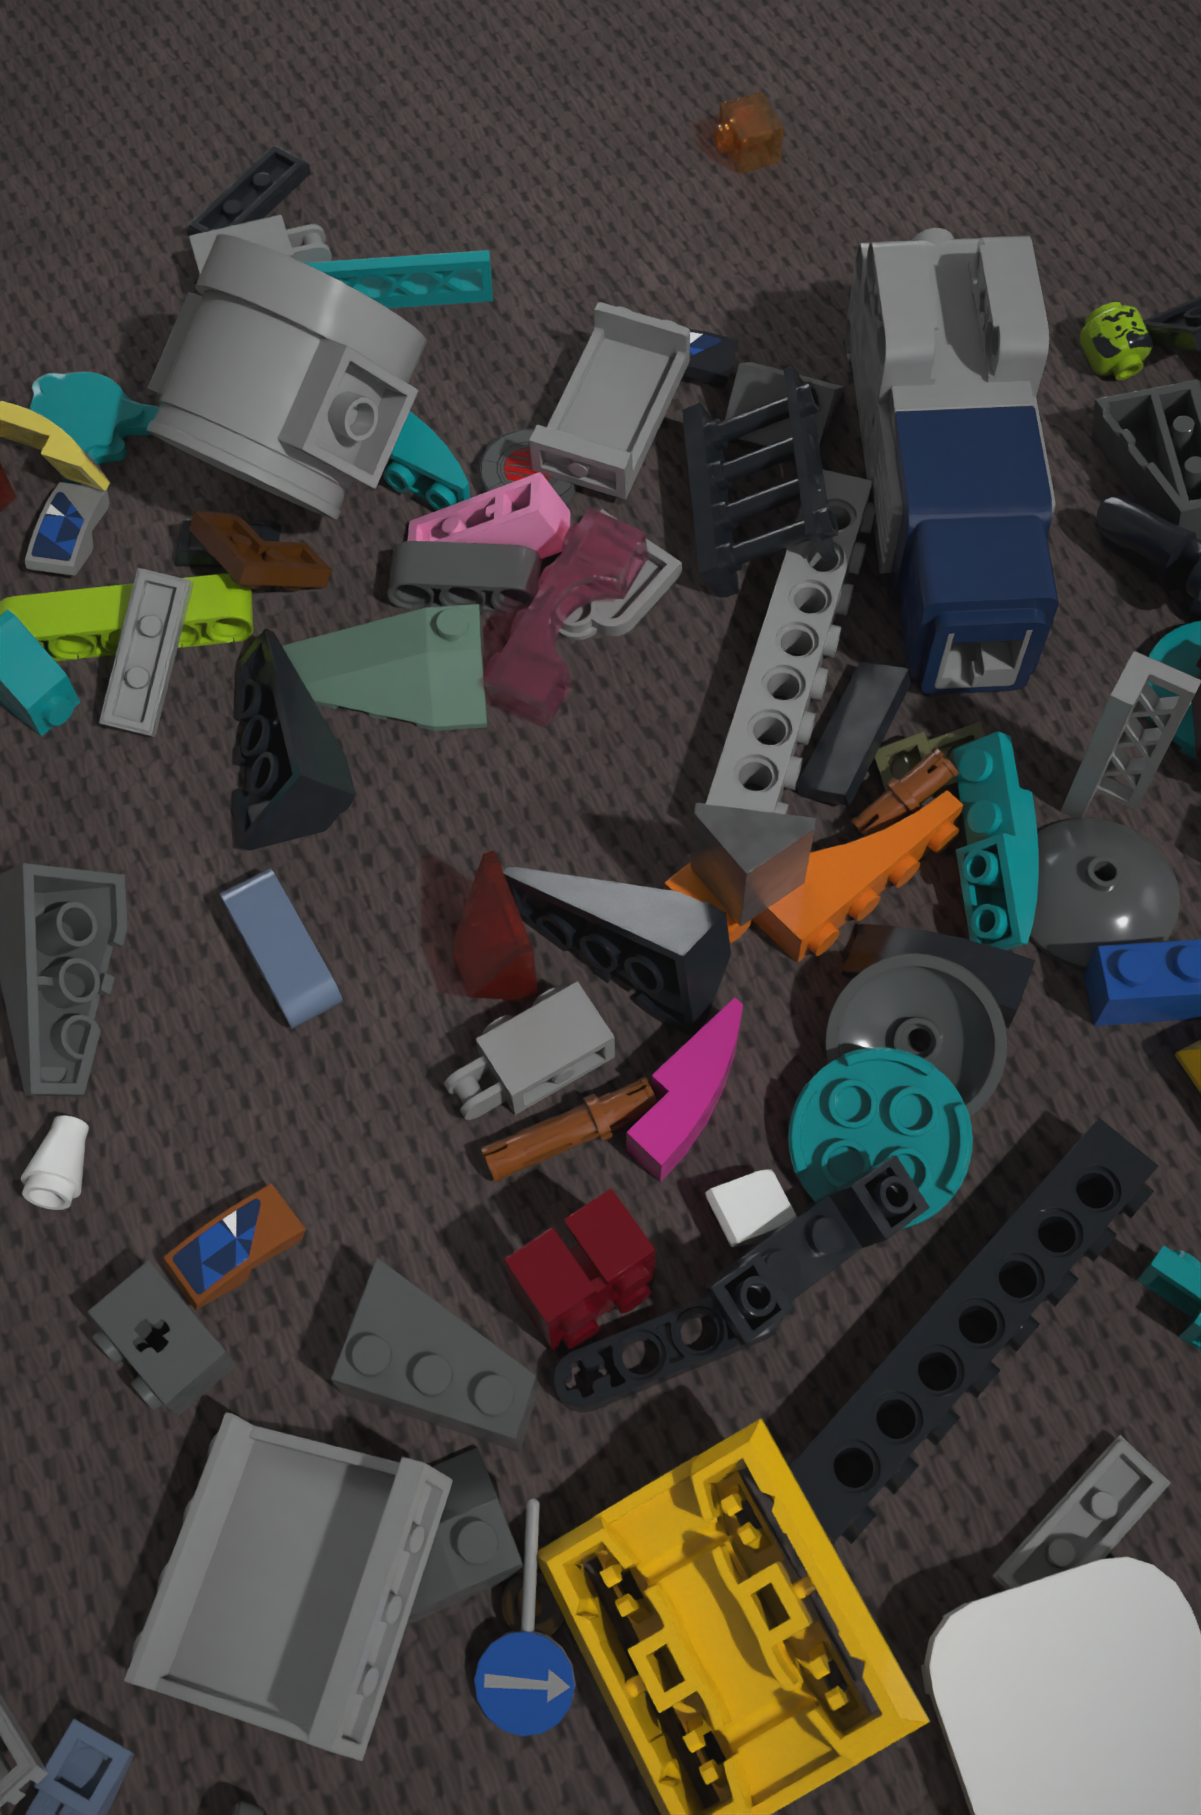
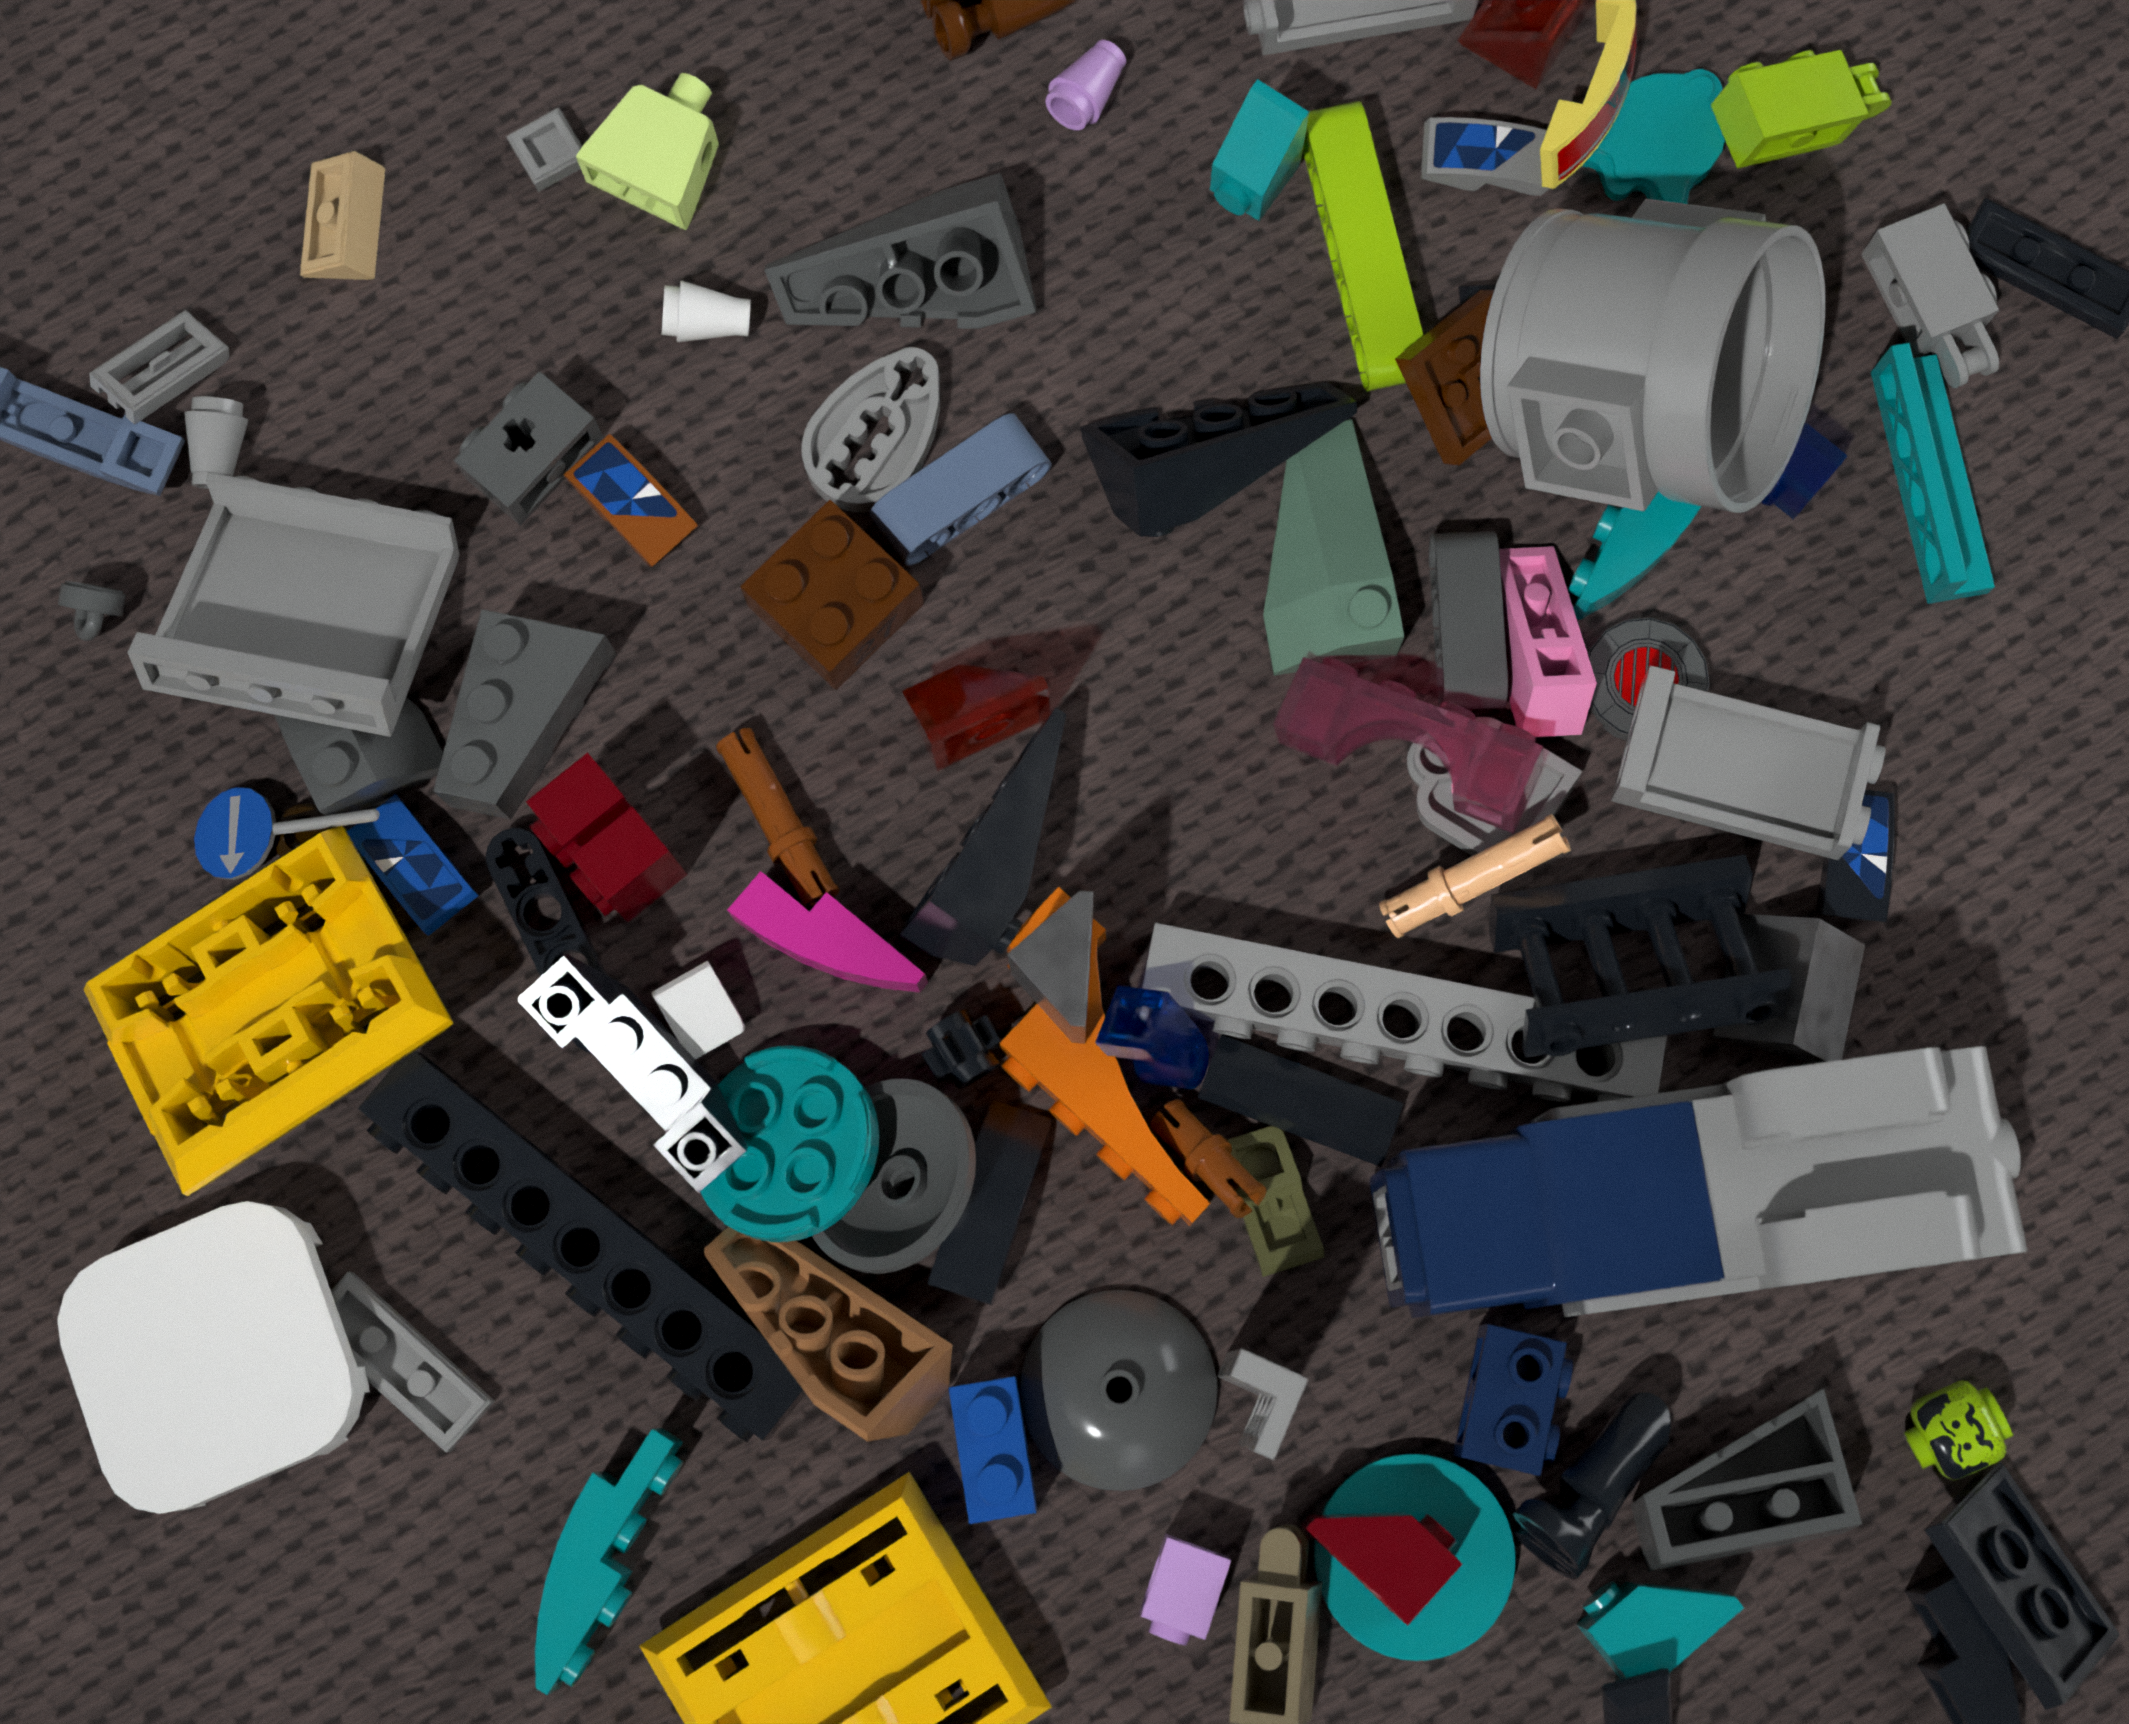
camera: 85 degrees right, 15 degrees up
(81, 1687) = (214, 437): none -> light grey cone
(82, 324) = (1795, 106): none -> lime brick
(146, 652) = (1308, 276): light grey tile -> none
(233, 1001) = (841, 422): none -> light grey piece
(365, 1058) = (832, 594): none -> reddish brown brick
(534, 1053) = (858, 772): light grey brick -> none
(582, 1483) = (412, 865): none -> slope
(689, 605) = (1452, 887): none -> light nougat pin
(800, 981) = (962, 1048): none -> black gear
(808, 804) = (1159, 1041): none -> clear blue leg
(1002, 844) = (1126, 1274): teal slope -> none
(1062, 1091) = (836, 1336): none -> medium nougat wedge
(1104, 608) = (1513, 1400): none -> dark blue brick

